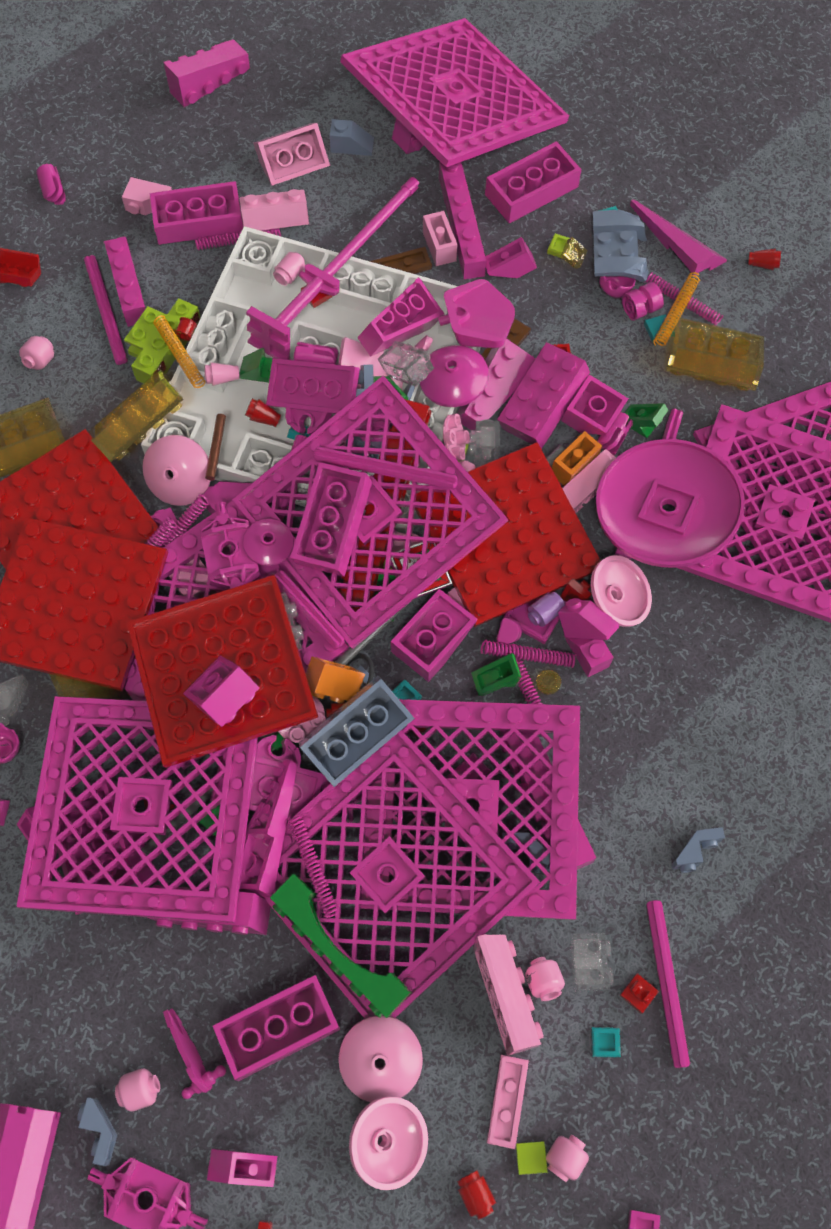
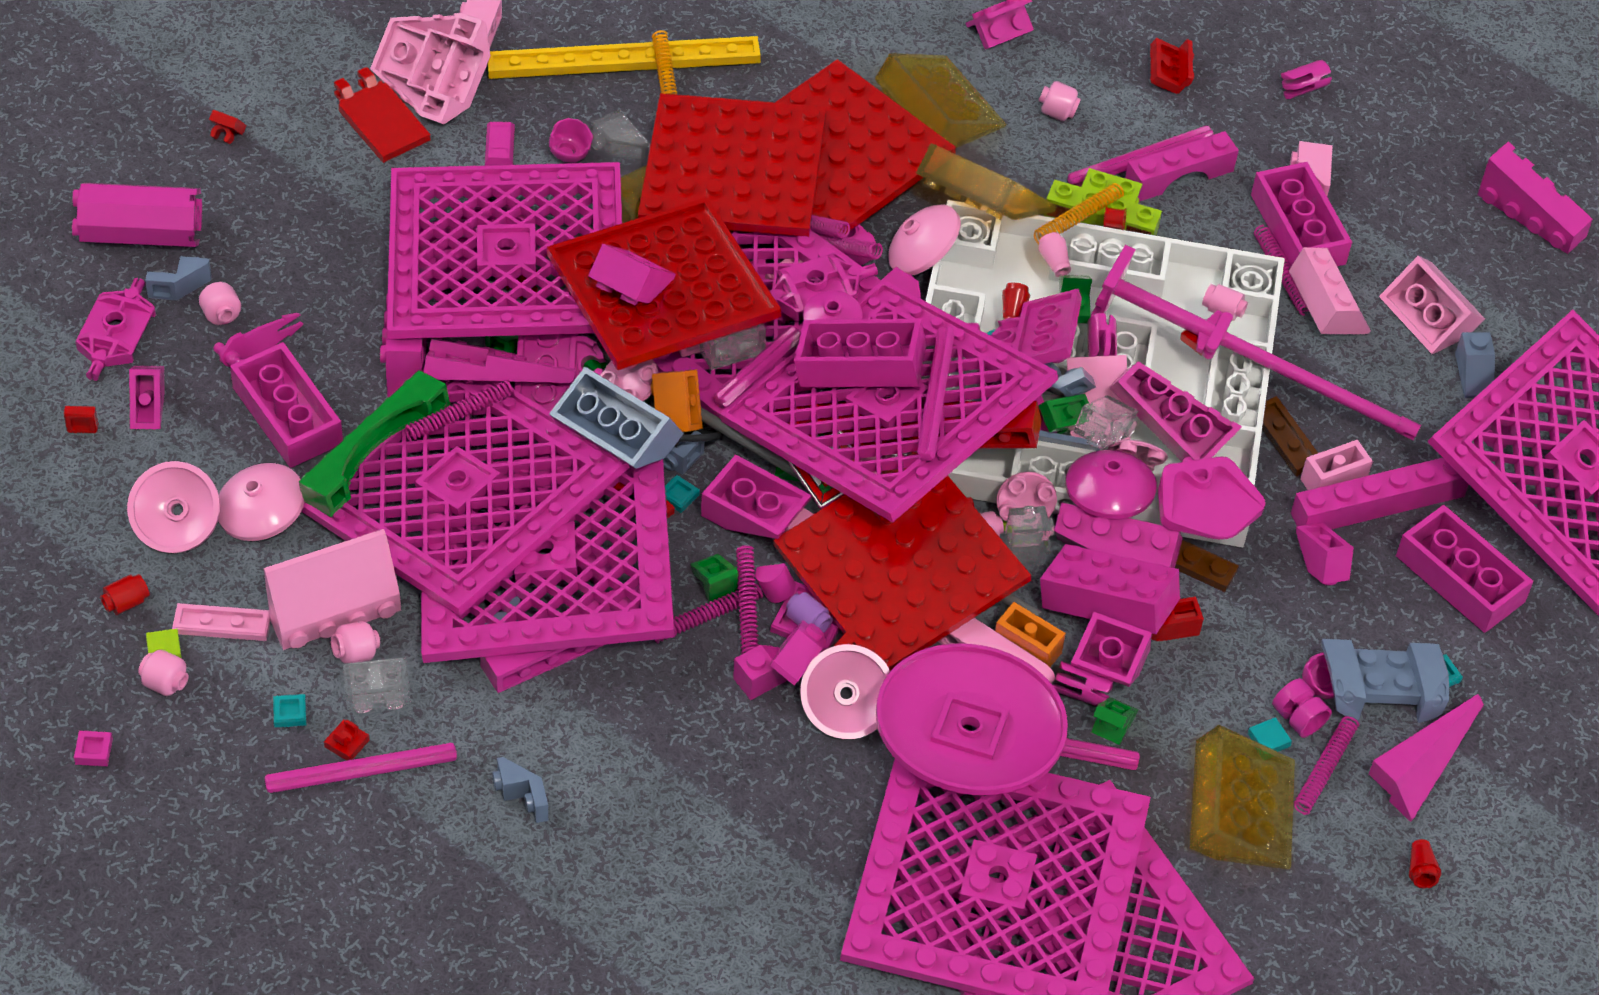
camera: 80 degrees right, 15 degrees down
(215, 447) = (956, 264): copper bar -> none
(548, 682) = (718, 633): clear yellow plate -> none
(557, 245) = (1374, 617): lime tile -> none
(574, 253) = (1364, 628): clear yellow tile -> none
(688, 292) = (1294, 748): light orange piece -> none

